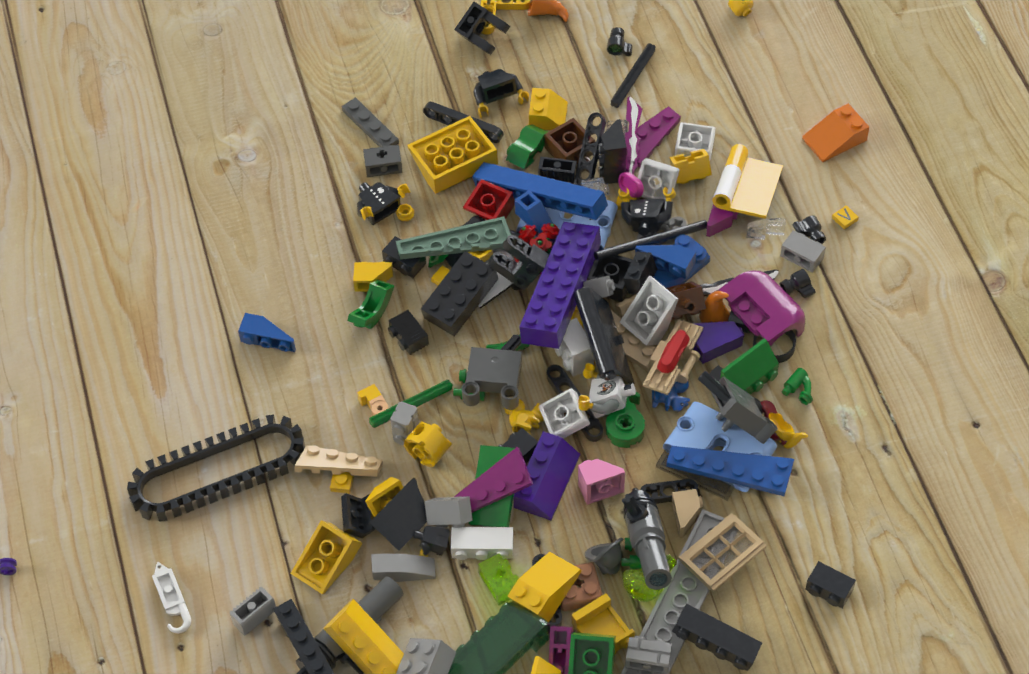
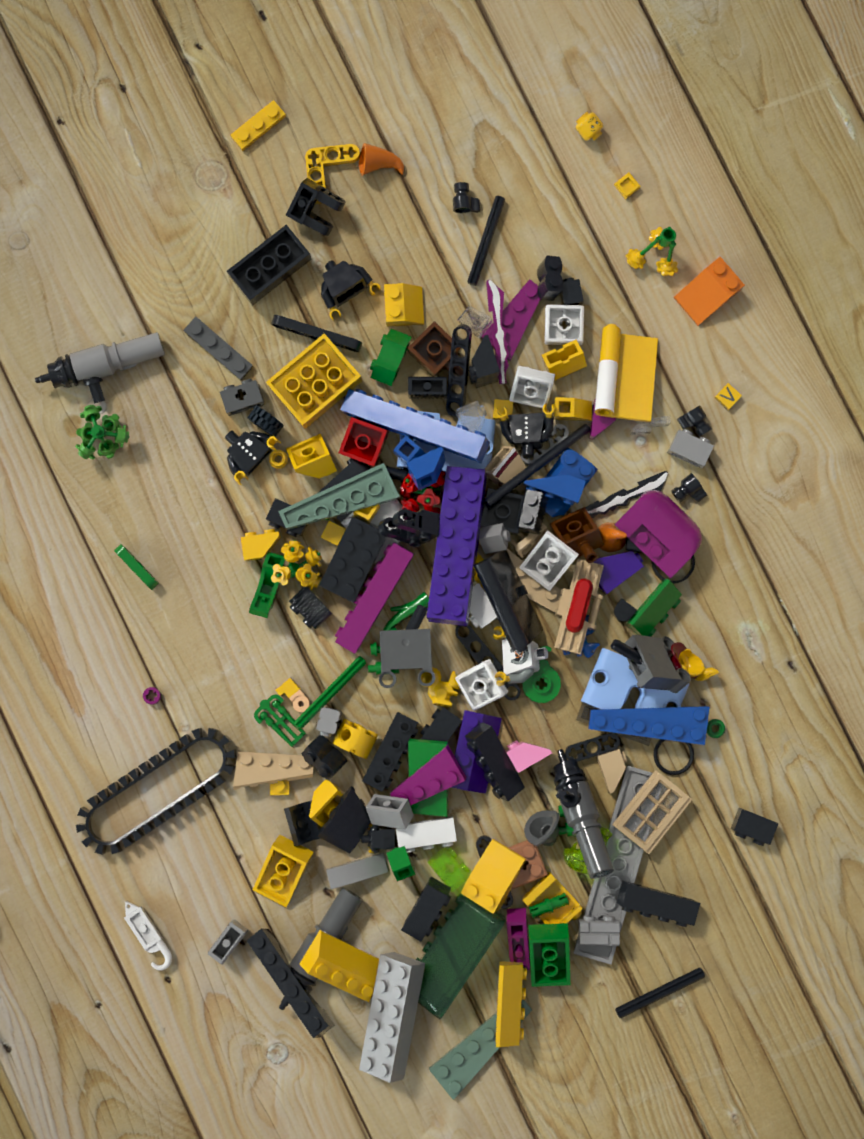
camera: 10 degrees left, 30 degrees up
(234, 169) = (90, 433): none -> bright green plant
(239, 389) = (147, 692): none -> magenta bush
(249, 278) = (136, 567): none -> green beam
(259, 117) = (100, 362): none -> light grey piece
(262, 332) = (161, 628): blue slope -> none
(344, 409) = (264, 704): none -> green piece
(392, 457) = (324, 757): none -> black brick
(399, 174) = (265, 421): none -> black bush
(404, 292) = (305, 575): none -> yellow plant
(431, 65) = (269, 264): none -> black brick
(440, 214) = (311, 458): none -> yellow slope
(450, 560) = (401, 863): none -> green slope
(458, 465) = (388, 755): none -> black brick
(468, 608) = (427, 909): none -> black brick
(472, 328) = (374, 598): none -> magenta brick
(544, 215) = (426, 468): none -> blue slope
(564, 478) = (494, 761): none -> black brick
(600, 627) = (548, 905): none -> green pin
(622, 234) = (505, 466): none -> tan torso
(629, 181) = (506, 395): dark pink tile -> none
(687, 103) = (550, 278): none -> black brick
(691, 204) = (572, 409): none -> yellow slope
(705, 116) = (571, 292): none -> black brick
(769, 51) = (627, 185): none -> yellow tile
(772, 511) = (673, 772): none -> black tyre
(793, 90) = (660, 239): none -> yellow plant
(798, 378) = (699, 603): green plant -> none
(802, 487) = (721, 728): none -> green plate

